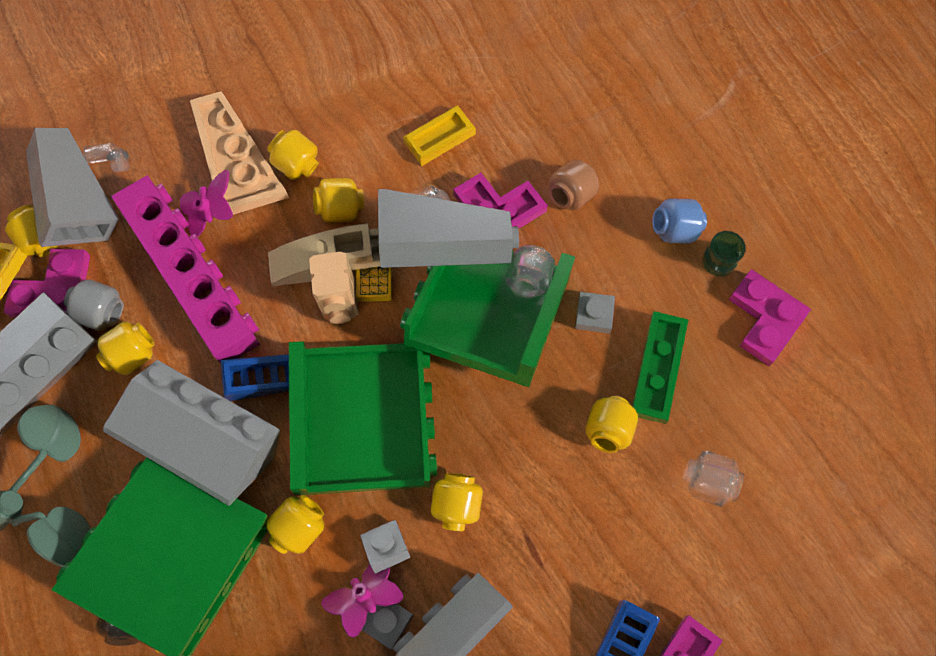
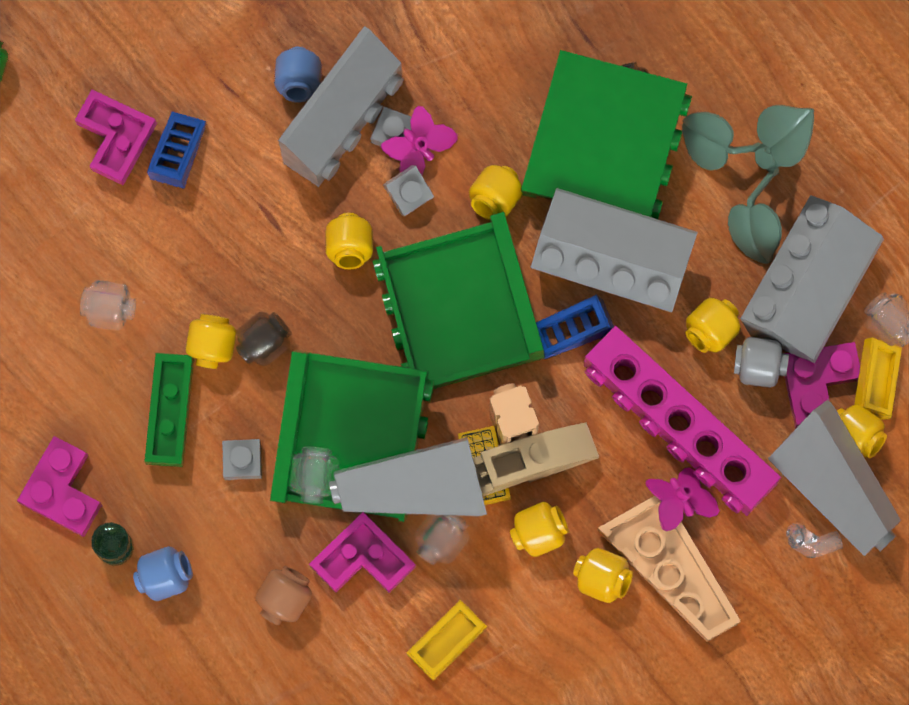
camera: 170 degrees right, 5 degrees up
(559, 416) = (263, 338): none -> clear smoke head

